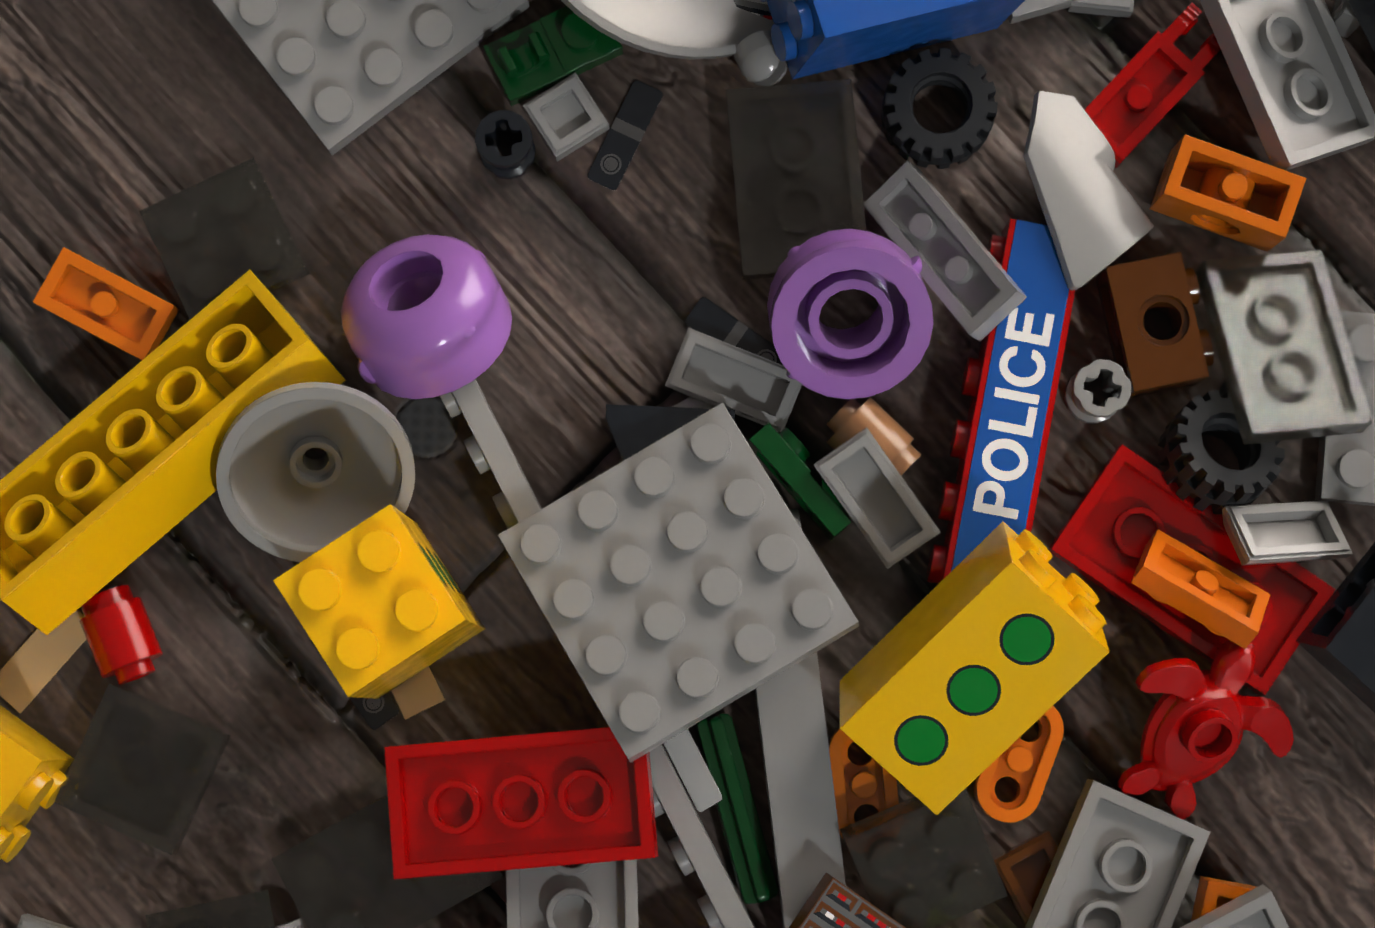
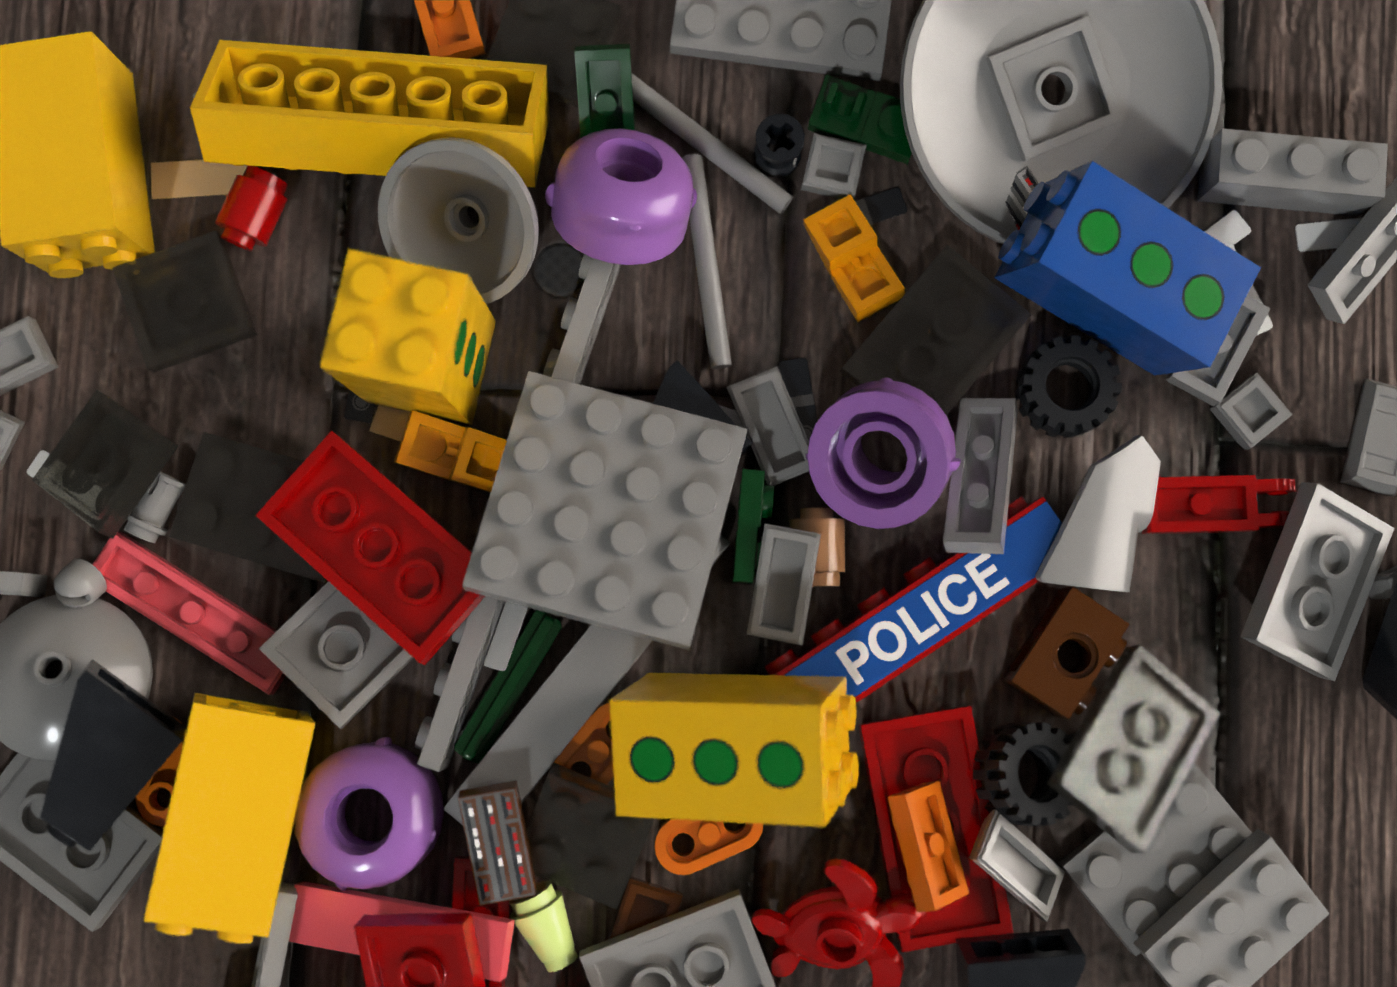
camera: 45 degrees right, 0 degrees up
(317, 242) = (604, 87): none -> dark green plate
(435, 202) = (710, 146): none -> light grey bar
(496, 665) = (450, 451): none -> light orange slope
(551, 306) = (707, 269): none -> light grey bar
(659, 176) = (853, 258): none -> light orange slope
(758, 59) = (985, 246): light grey hinge -> none
(1113, 382) = (1005, 663): light grey bush -> none
(1227, 193) = (1197, 618): orange brick -> none

